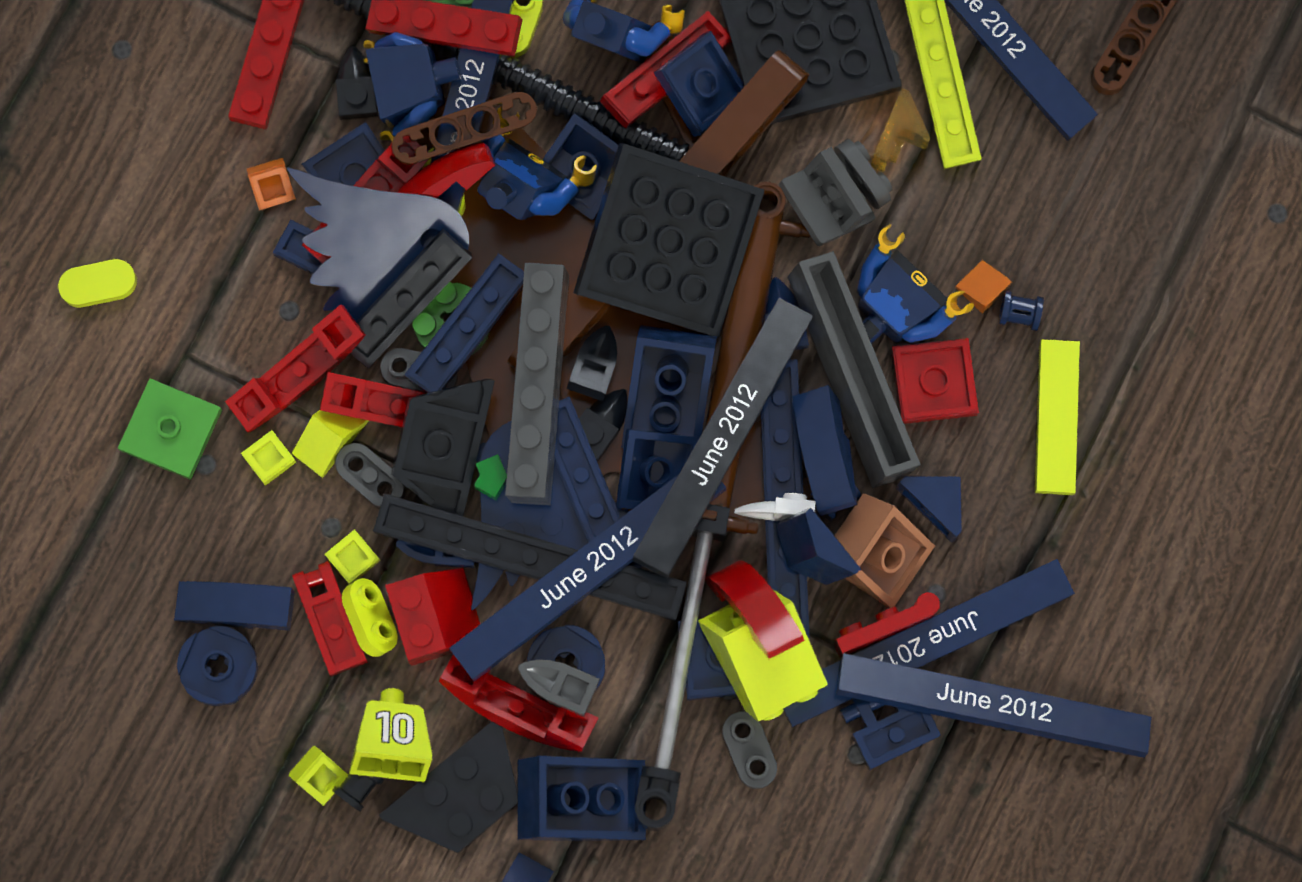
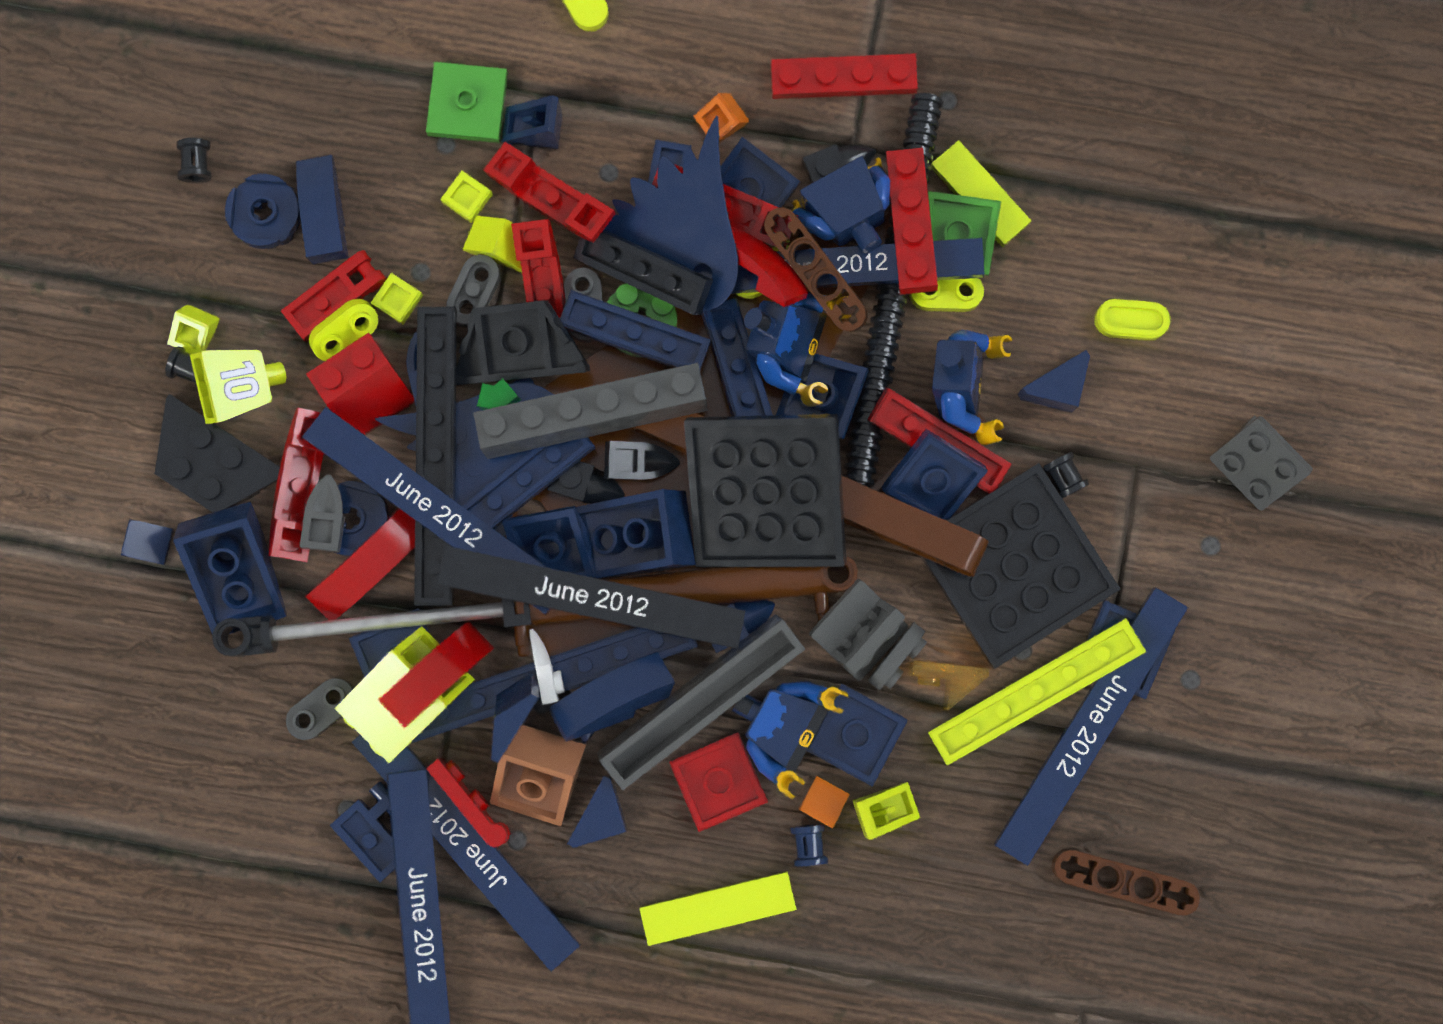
camera: 75 degrees right, 5 degrees up
(140, 722) = (193, 147): none -> black bush
(216, 366) = (534, 123): none -> dark blue slope
(530, 237) = (735, 365): none -> dark blue tile
(620, 661) = (364, 566): none -> red slope
(932, 230) = (858, 737): none -> dark blue plate
(1008, 231) = (886, 810): none -> neon yellow slope

